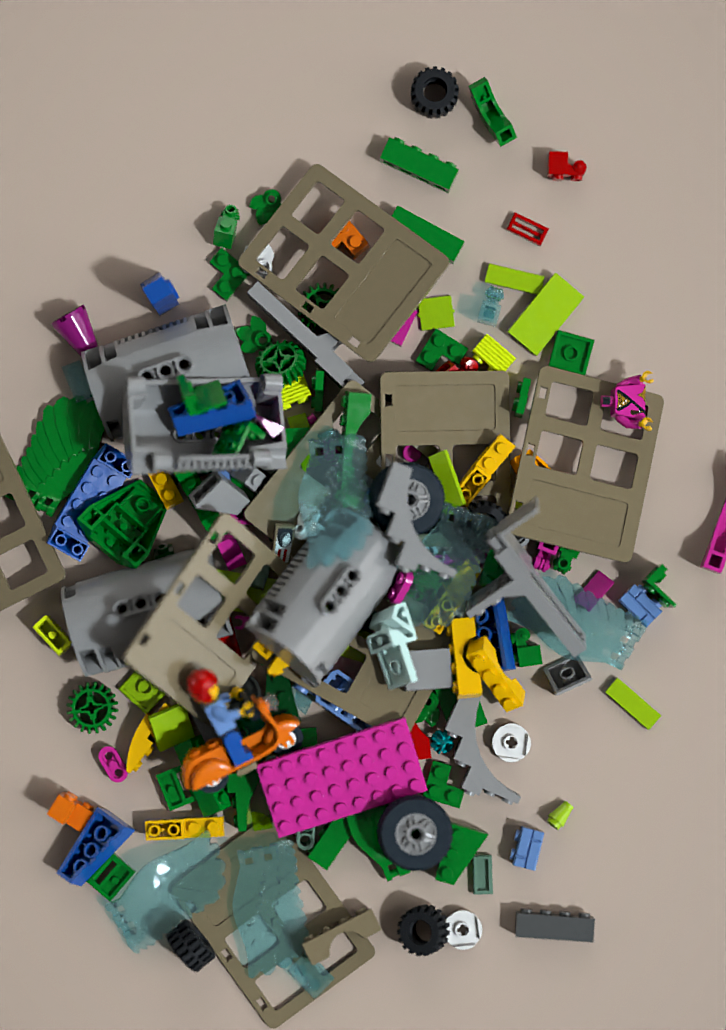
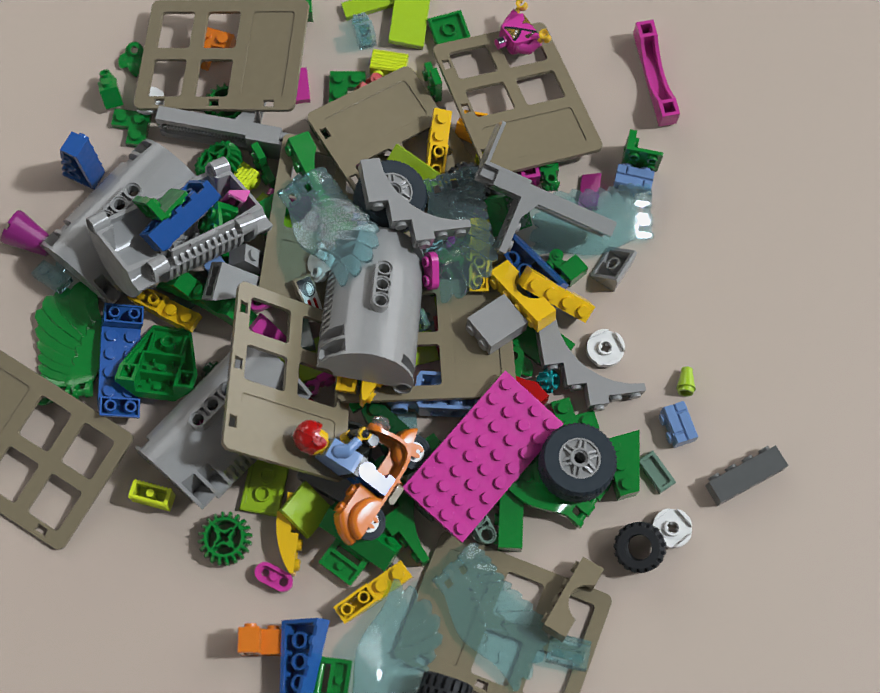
camera: 40 degrees left, 15 degrees down
(251, 334) = (185, 153): green plate -> none
(260, 821) = (437, 545): clear neon green tile -> none
(392, 633) = (451, 315): light aqua piece -> none
(436, 313) = (322, 62): lime piece -> none
(633, 703) = (681, 259): lime tile -> none

